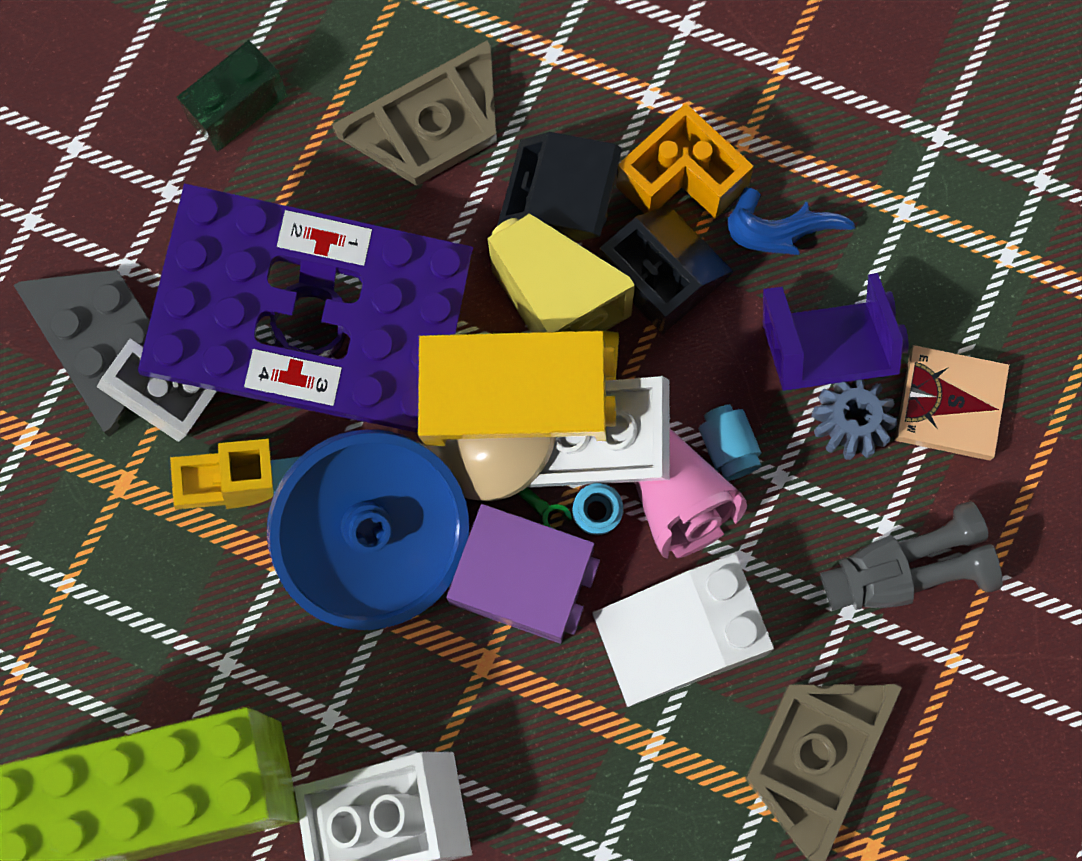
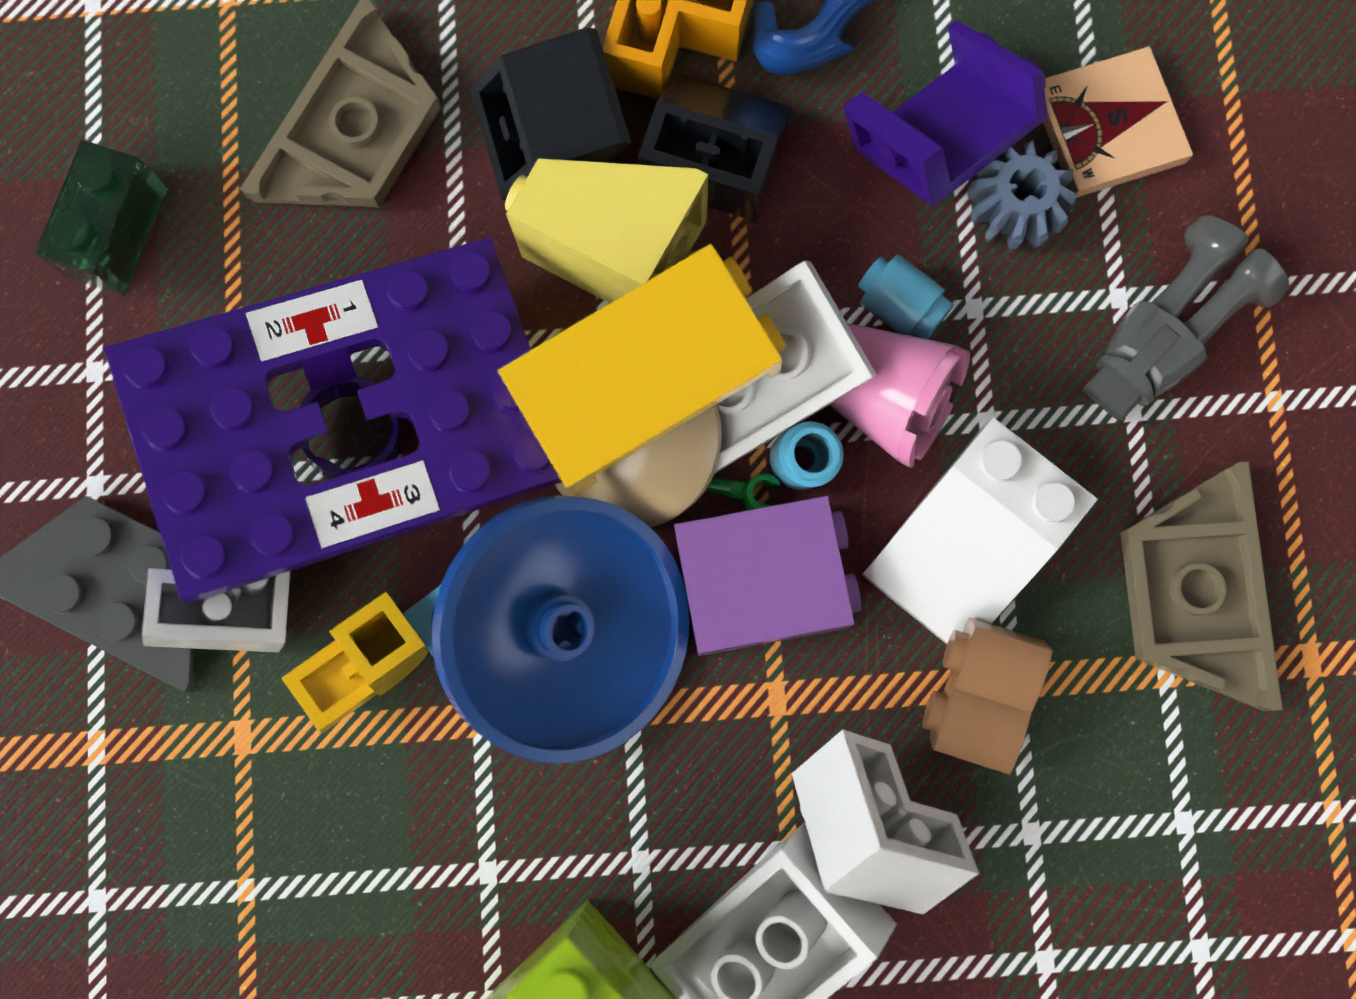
camera: 30 degrees left, 5 degrees up
(488, 783) = (871, 835): none -> white brick
(624, 738) = (987, 695): none -> medium nougat brick

